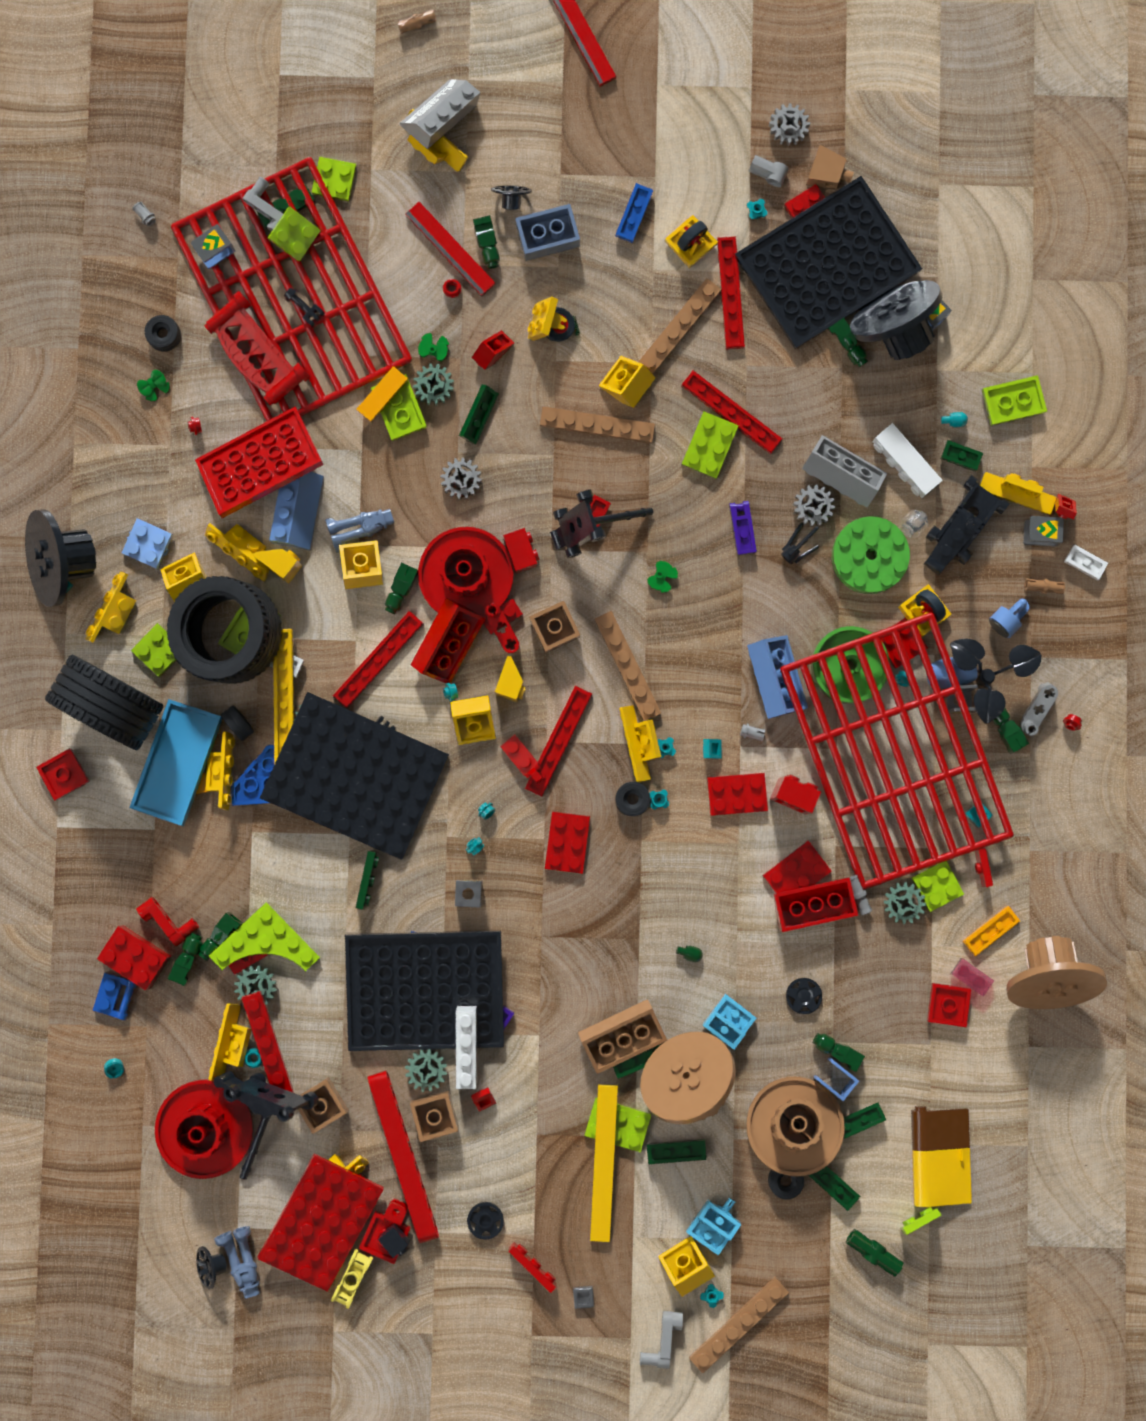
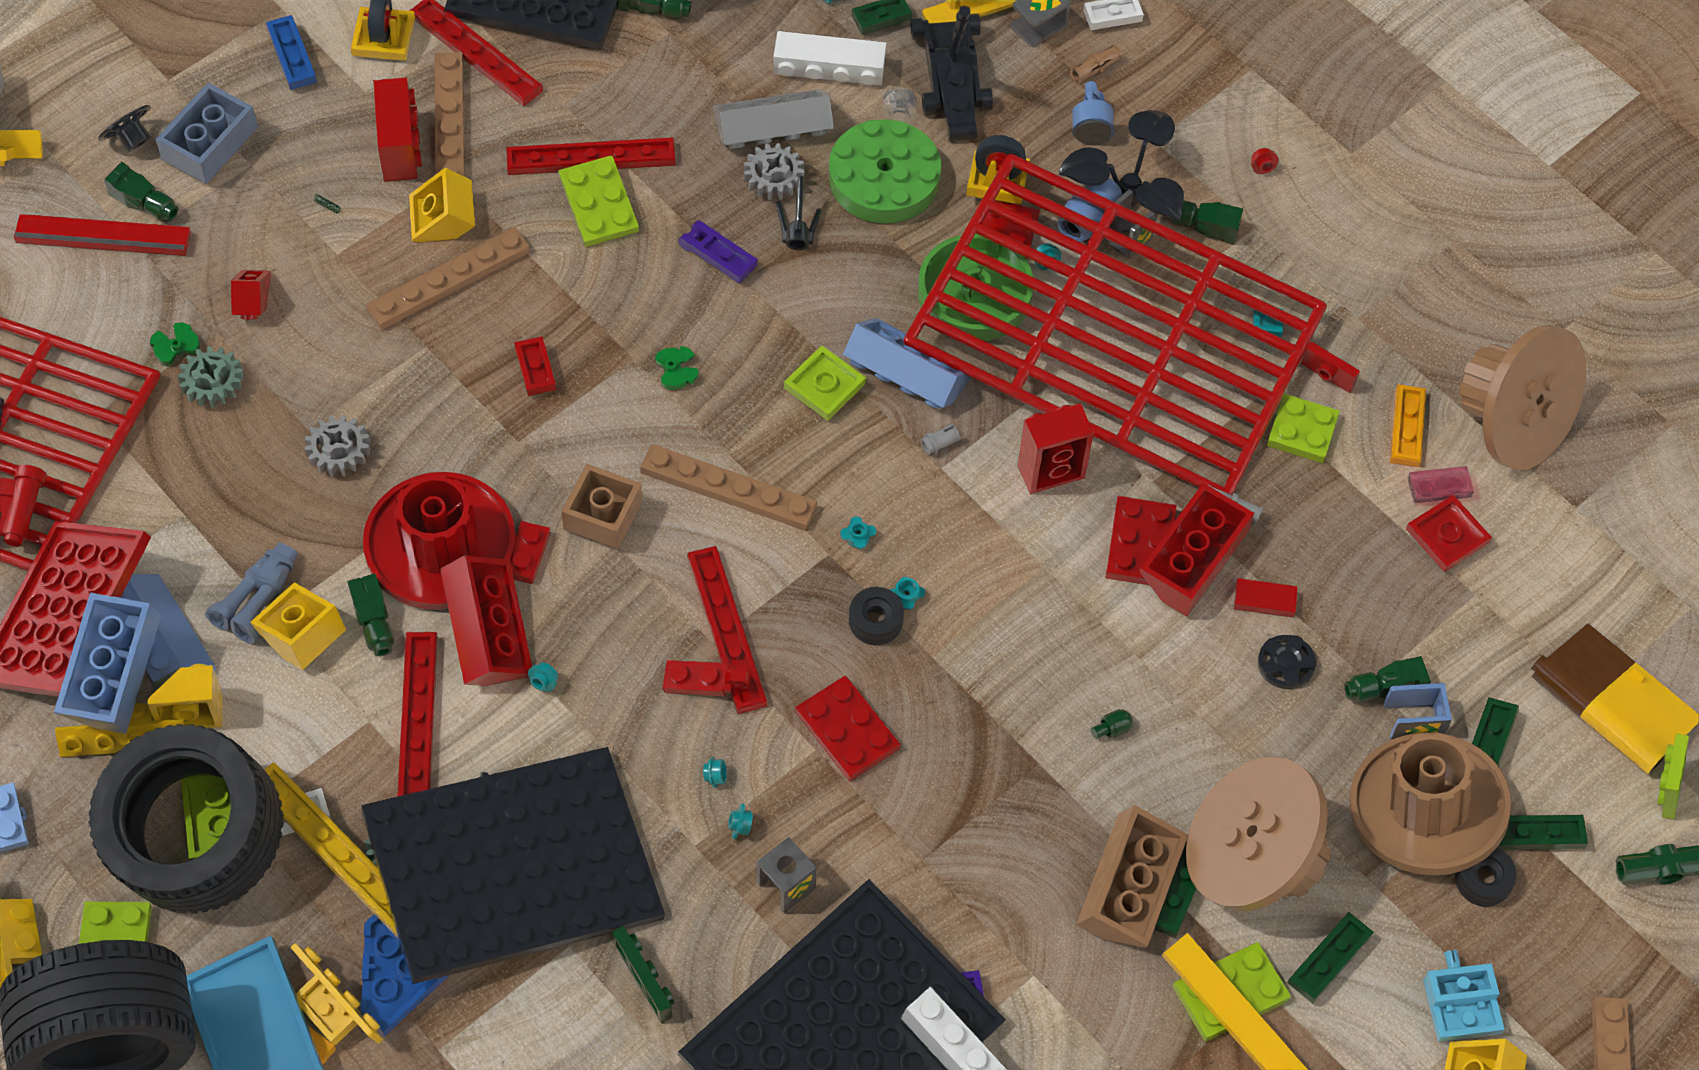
camera: 40 degrees left, 25 degrees down
(181, 574) = (67, 822): yellow slope -> none
(237, 723) = (301, 924): black tyre -> none
(251, 517) = (108, 662): none -> medium blue slope
(382, 394) = (155, 428): light orange tile -> none
(403, 414) = (189, 431): lime plate -> none
(452, 282) = (138, 264): red plate -> none
(473, 720) = (601, 684): yellow slope -> none
(478, 414) = (296, 366): dark green plate -> none
(499, 617) = (520, 550): red beam -> none
(510, 682) = (607, 601): yellow slope -> none
(520, 550) = (483, 461): red brick -> none
(550, 321) = (292, 212): yellow plate -> none
(580, 526) = (531, 360): black piece -> none
(641, 742) = (826, 545): yellow bracket -> none
(643, 314) = (397, 129): none -> red brick
(712, 748) = (912, 490): teal plate -> none
(725, 651) = (824, 383): none -> lime plate
(729, 1021) = (1229, 748): medium azure plate -> none
(737, 794) = (989, 516): red plate -> none
(826, 955) = (1265, 597): none -> red tile
(900, 911) = (1280, 478): sand green gear -> none
(1033, 719) = (1216, 190): light grey beam -> none

